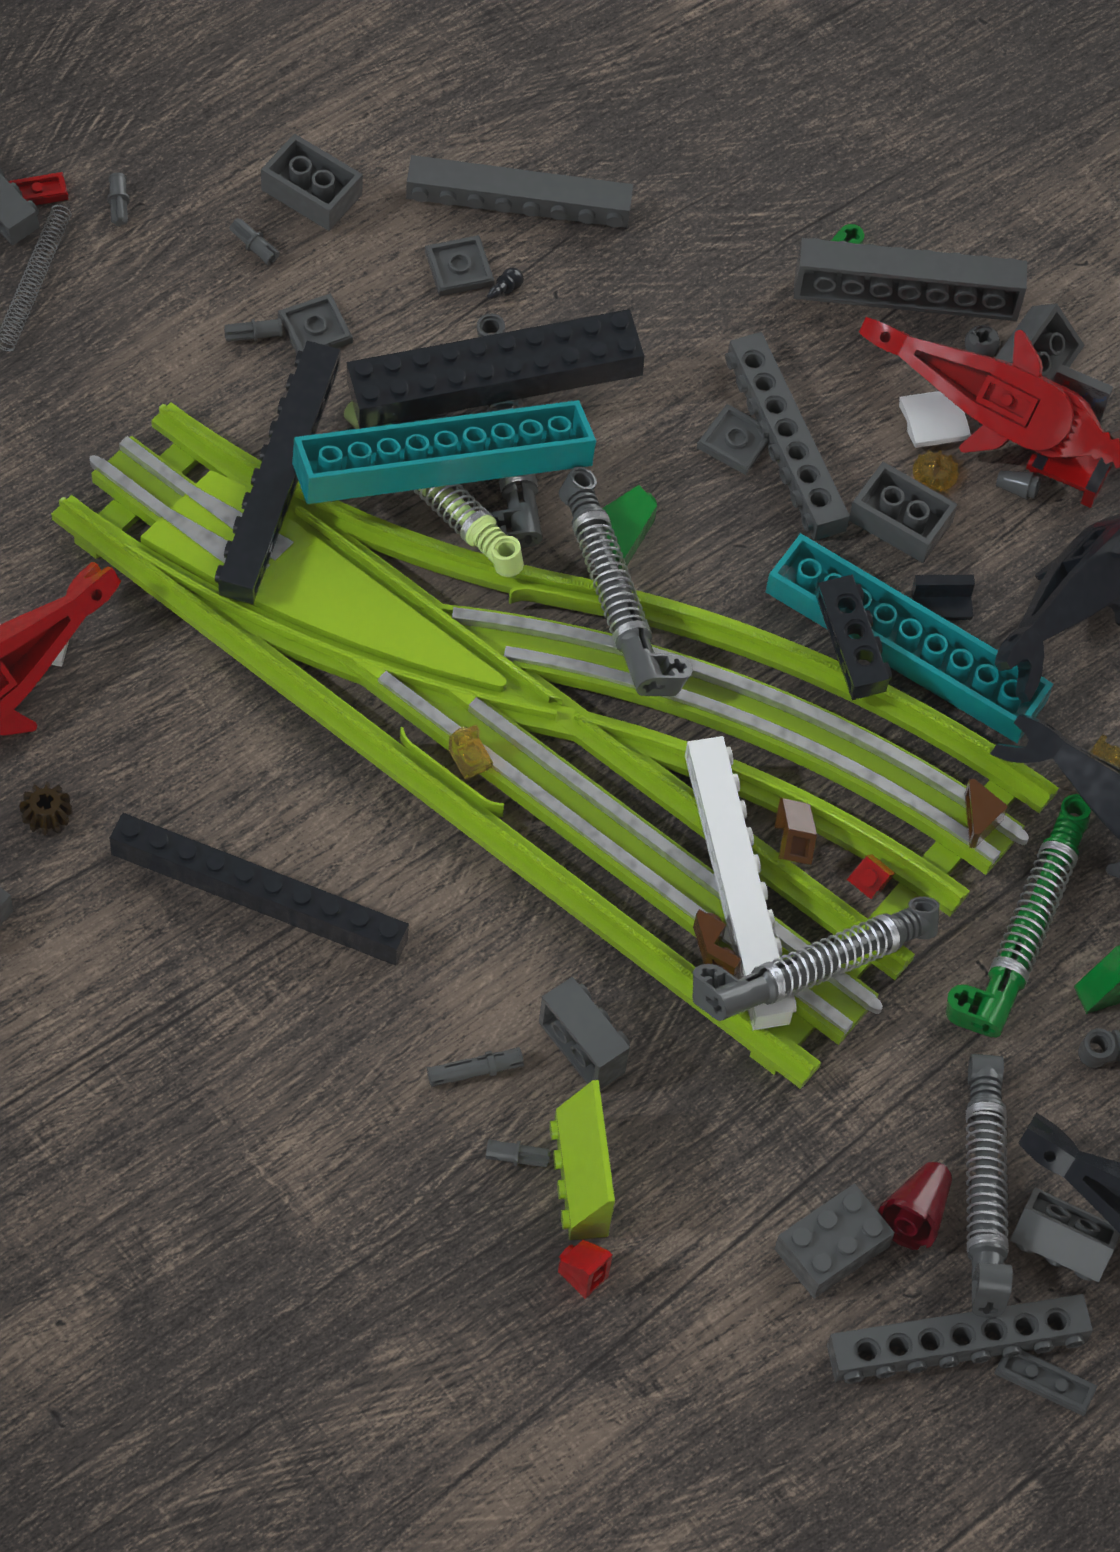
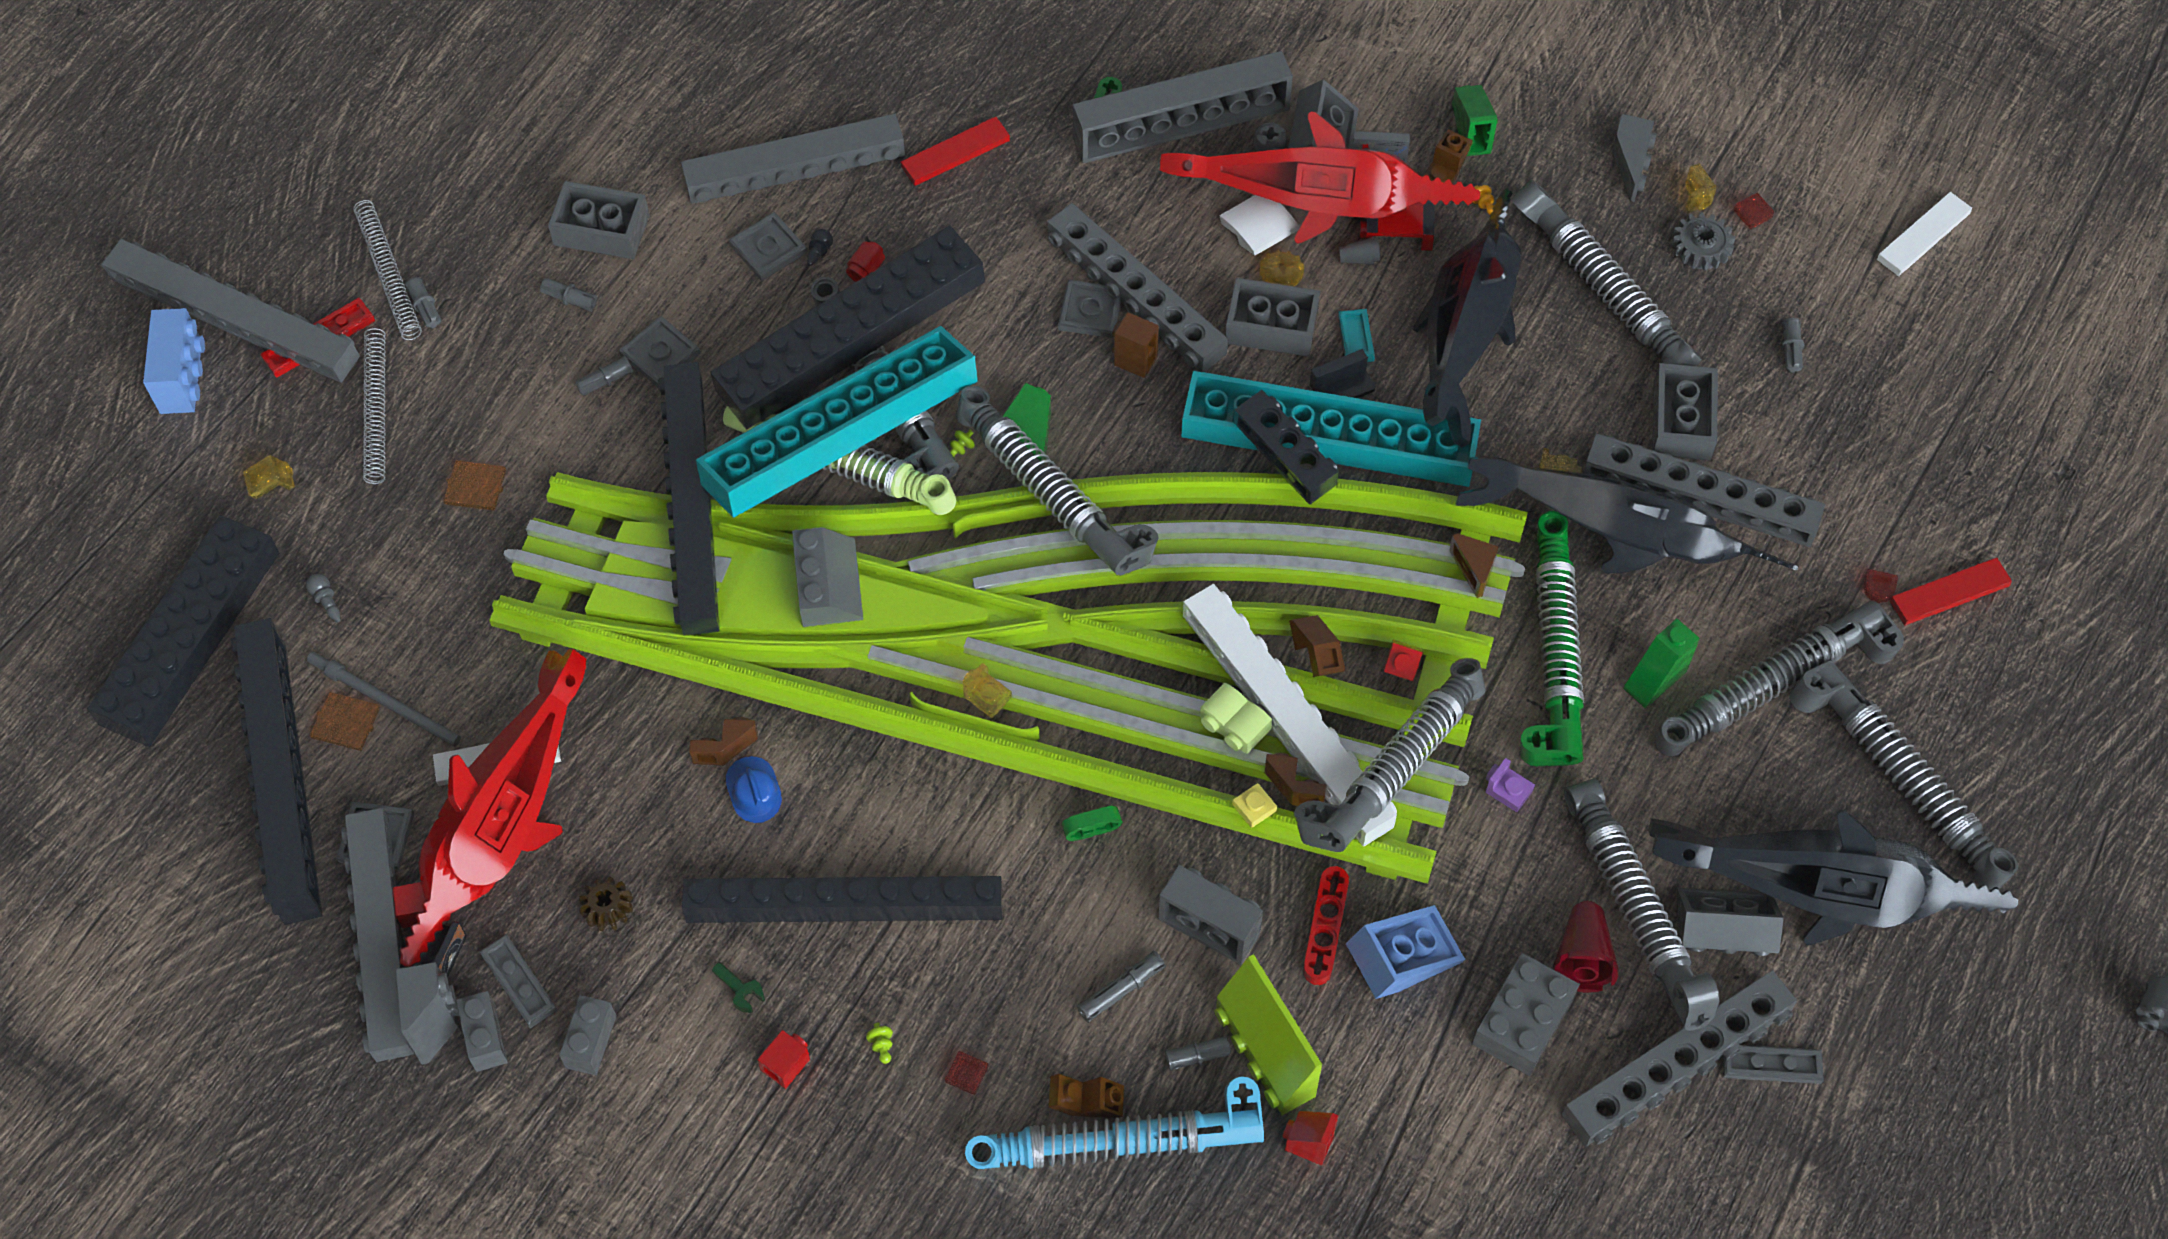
camera: 15 degrees left, 0 degrees up
(89, 155) = (380, 277): none -> light grey piece
(93, 386) = (475, 485): none -> clear orange piece
(132, 931) = (741, 989): none -> dark green bar
(144, 1007) = (784, 1058): none -> red brick
(223, 760) = (753, 789): none -> blue piece
(226, 707) = (736, 737): none -> reddish brown slope
(237, 1027) = (881, 1041): none -> lime hair
(301, 1086) = (966, 1073): none -> clear red tile
(370, 592) = (826, 577): none -> dark grey slope
(399, 1153) = (1086, 1099): none -> reddish brown slope
(419, 1199) = (1129, 1136): none -> medium azure piece
(515, 911) = (1092, 823): none -> green beam
(543, 312) = (865, 260): none -> red brick
(558, 516) = (963, 440): none -> lime hair
(669, 952) = (1254, 805): none -> light yellow plate
(676, 241) = (955, 151): none -> red tile
(687, 867) = (1235, 718): none -> yellowish green brick
(687, 1087) = (1322, 924): none -> red beam
(749, 1139) = (1404, 950): none -> medium blue slope
(759, 488) = (1135, 344): none -> reddish brown brick
(919, 1031) = (1508, 786): none -> medium lavender bracket
(978, 558) = (1356, 332): none -> teal tile

